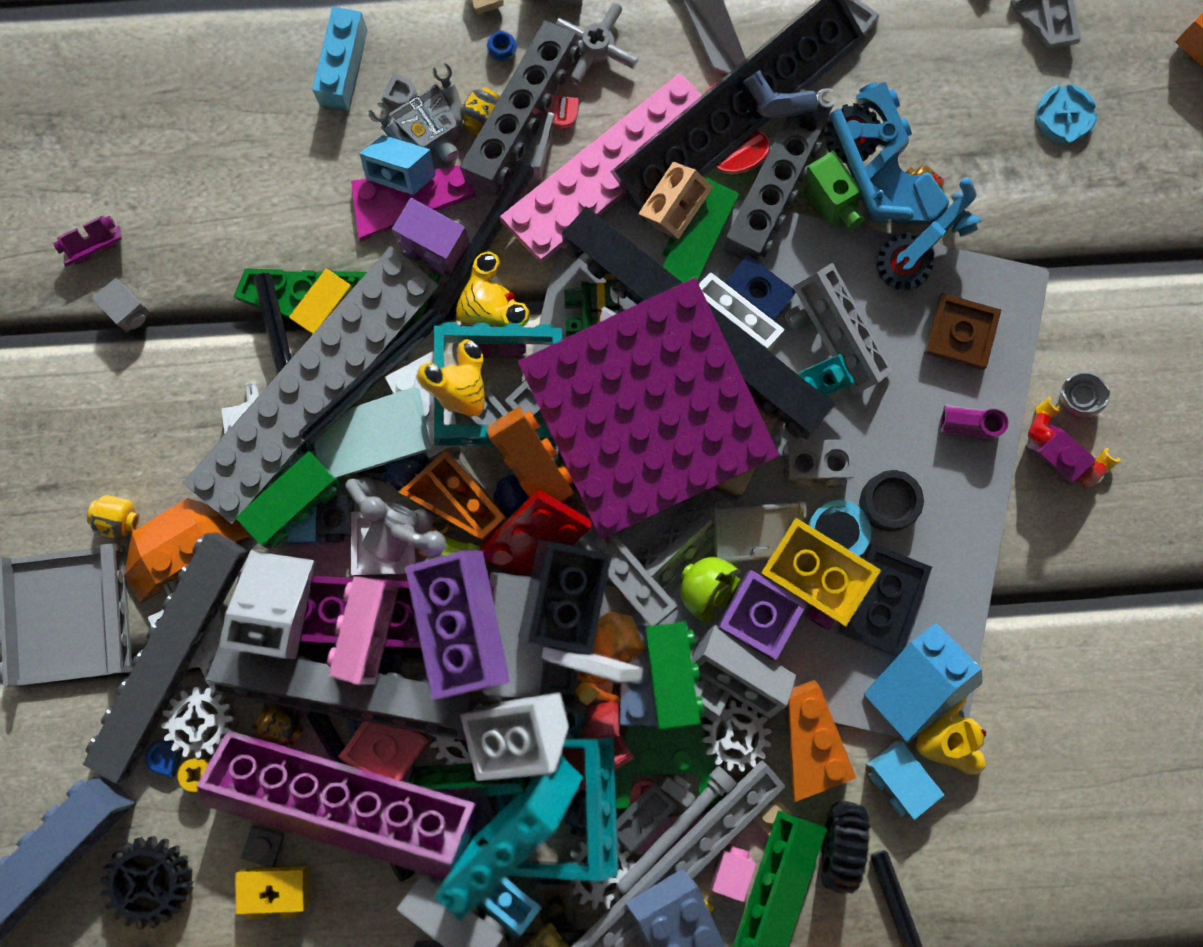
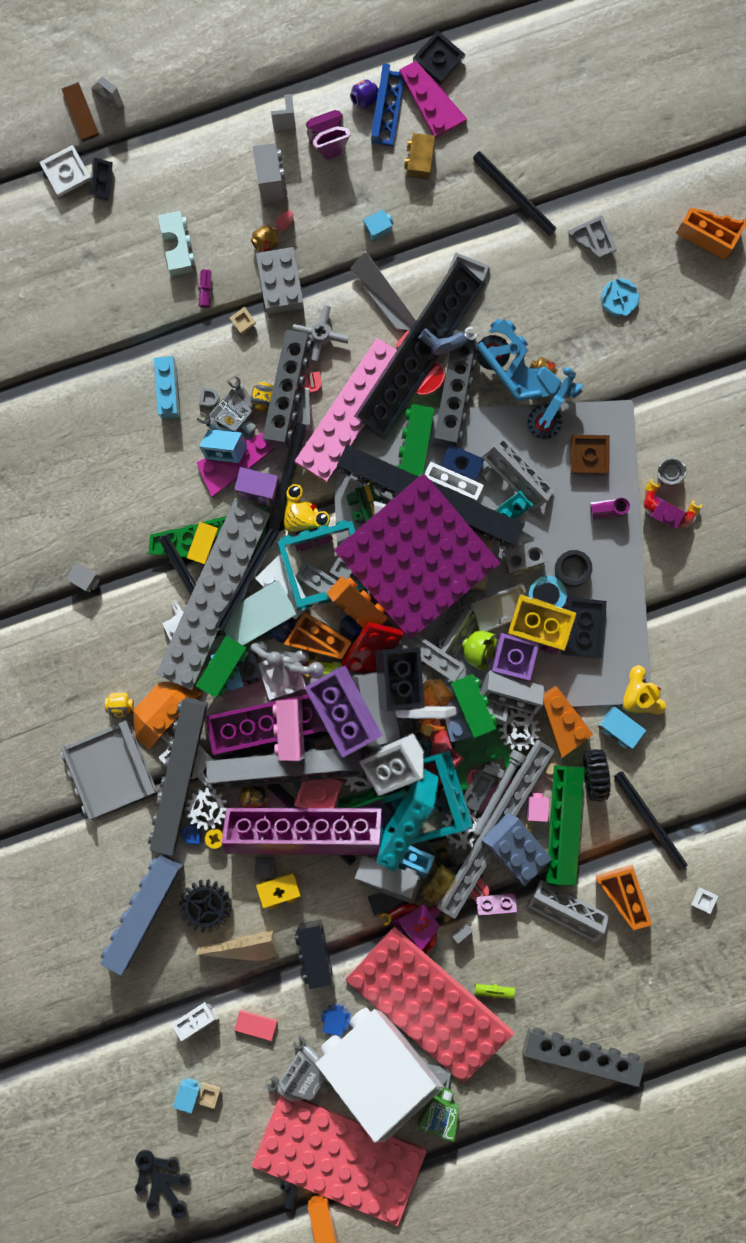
camera: 15 degrees left, 5 degrees up
(79, 248) = (57, 538): magenta hinge -> none
(268, 605) = (231, 730): slope -> none
(455, 386) = (303, 574): yellow head -> none
(501, 38) = (262, 345): blue plate -> none
(676, 200) = (398, 423): light nougat brick -> none
(833, 191) = (491, 390): bright green torso -> none
(924, 683) = (618, 670): dark azure slope -> none

